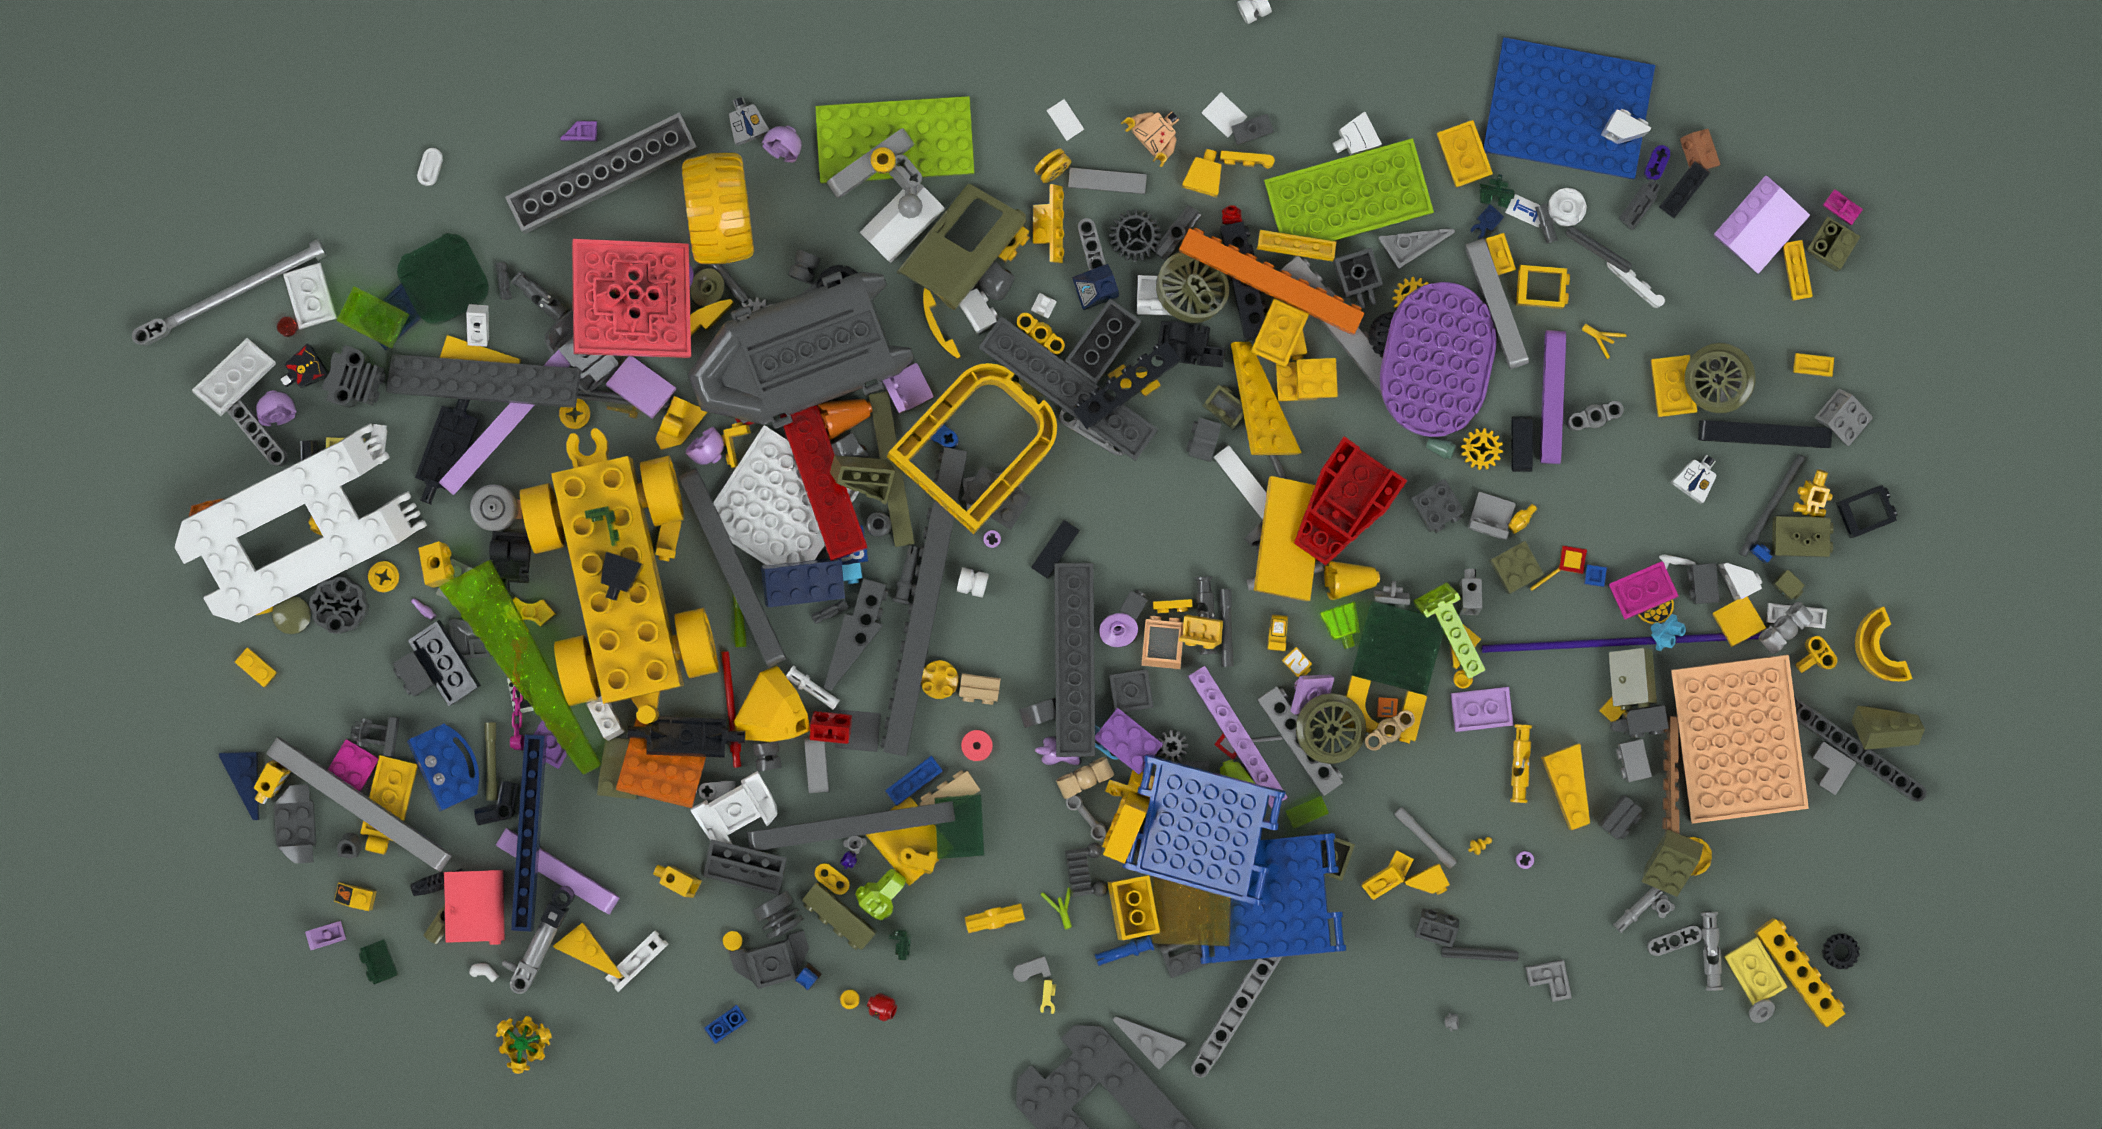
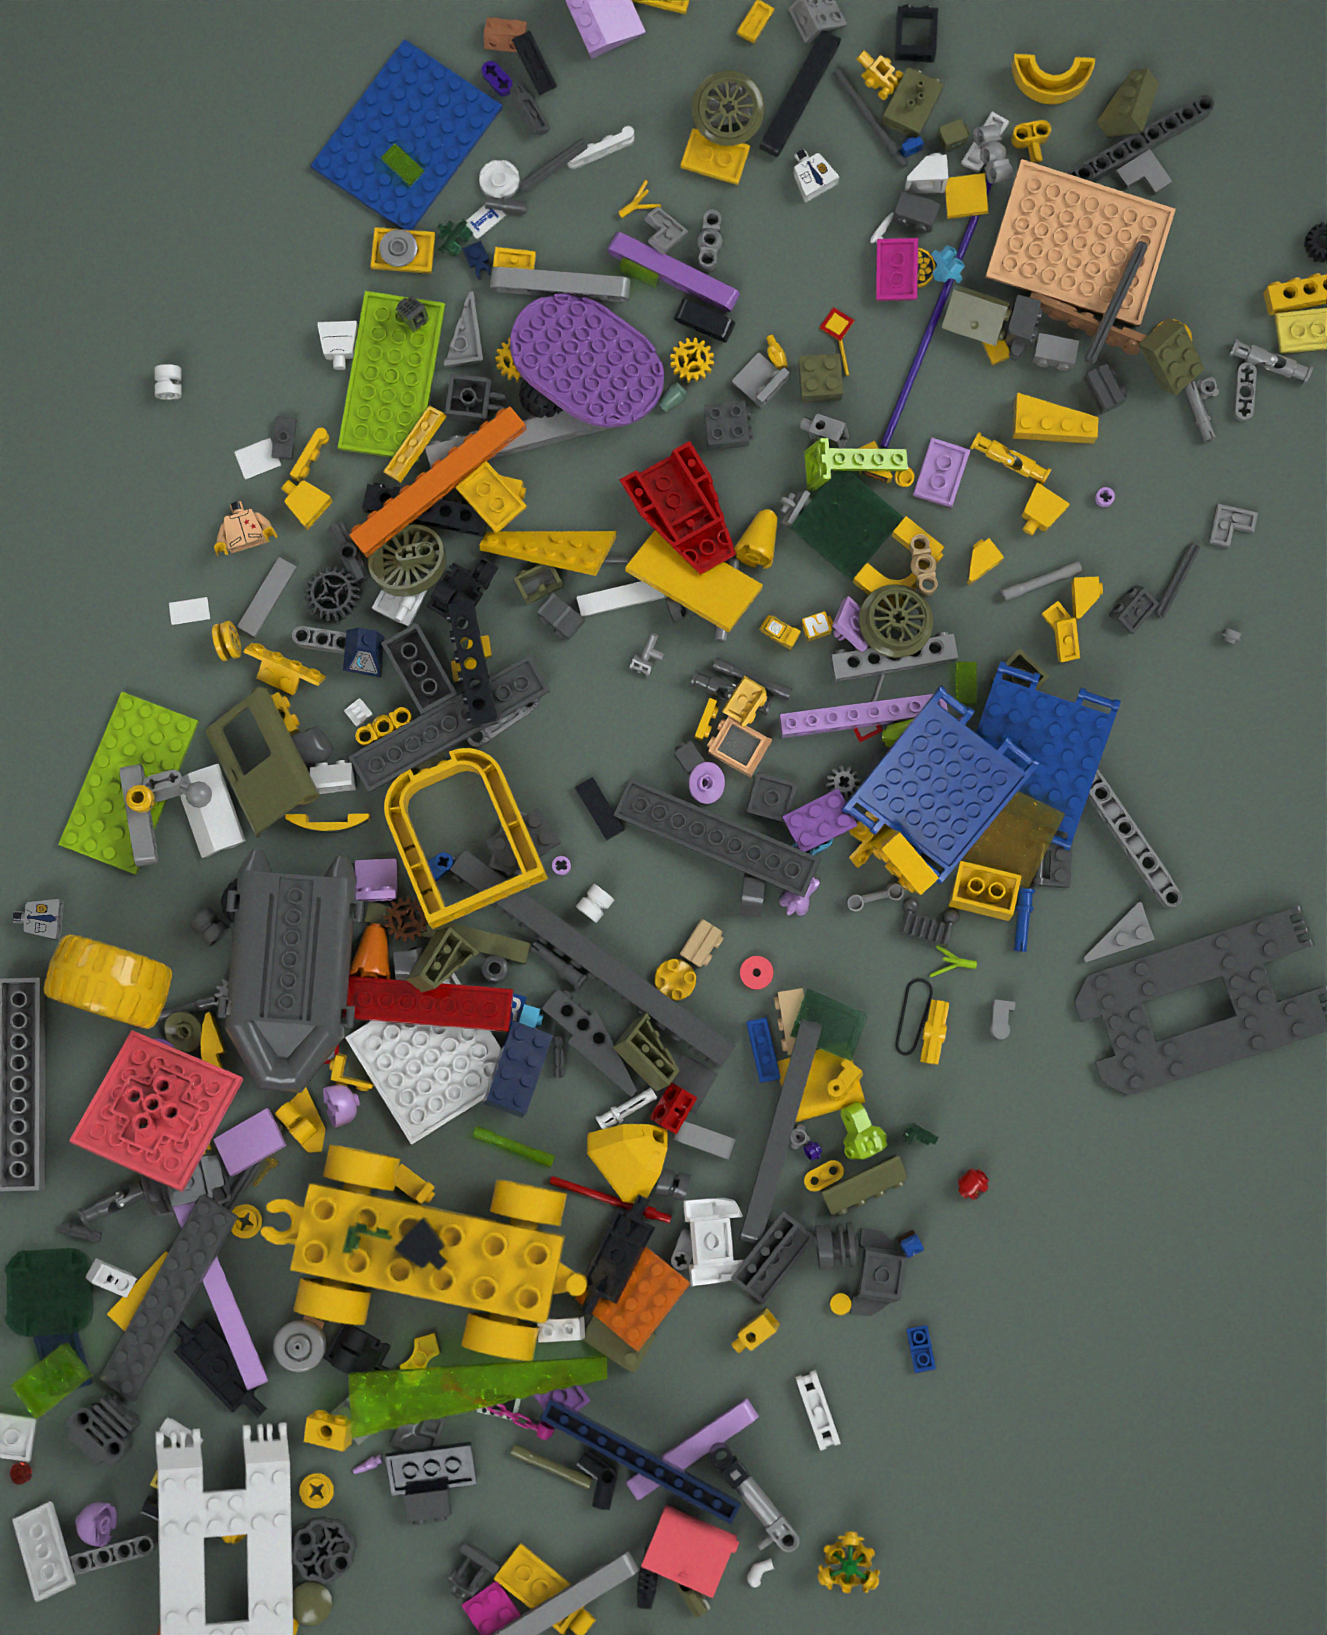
camera: 60 degrees left, 5 degrees down
(304, 368) = (70, 1474): black torso -> none
(445, 766) = (534, 1515): blue piece -> none
(584, 947) = (781, 1456): yellow wing -> none
(732, 567) = (470, 1132): dark grey beam -> none
(783, 142) = (78, 891): lavender cylinder -> none
(849, 999) = (950, 1213): yellow tile -> none
(865, 683) = (646, 1054): none -> olive wedge
(886, 422) = (401, 929): none -> reddish brown gear
(1000, 884) = (903, 1012): none -> black piece
(1048, 991) = (1029, 1011): light yellow plate -> none
(1085, 777) = (836, 880): tan piece -> none
(1198, 529) = (643, 662): none -> light grey arm
(1231, 215) = (355, 494): red plate -> none
(1307, 380) = (548, 492): yellow bracket -> none
(1342, 623) = (798, 566): clear neon green torso -> none
(1387, 707) = (899, 561): orange tile -> none
(1410, 189) = (412, 313): none -> dark grey slope
(1420, 778) = (983, 559): none -> yellow slope
(1463, 149) = (398, 248): none -> light grey wheel
(1480, 845) = (1071, 533): yellow hair -> none
(1488, 810) = (1042, 509): none -> yellow torso
(1522, 287) = (553, 252): yellow window -> none
(1538, 367) = (639, 272): none -> clear neon green tile
(1539, 118) = (402, 165): none -> clear neon green tile
(1588, 376) = (668, 229): none -> light grey tile
(1595, 575) = (862, 309): blue plate -> none
(1623, 127) = (448, 87): white slope -> none
(1698, 793) = (1116, 302): none -> dark grey axle

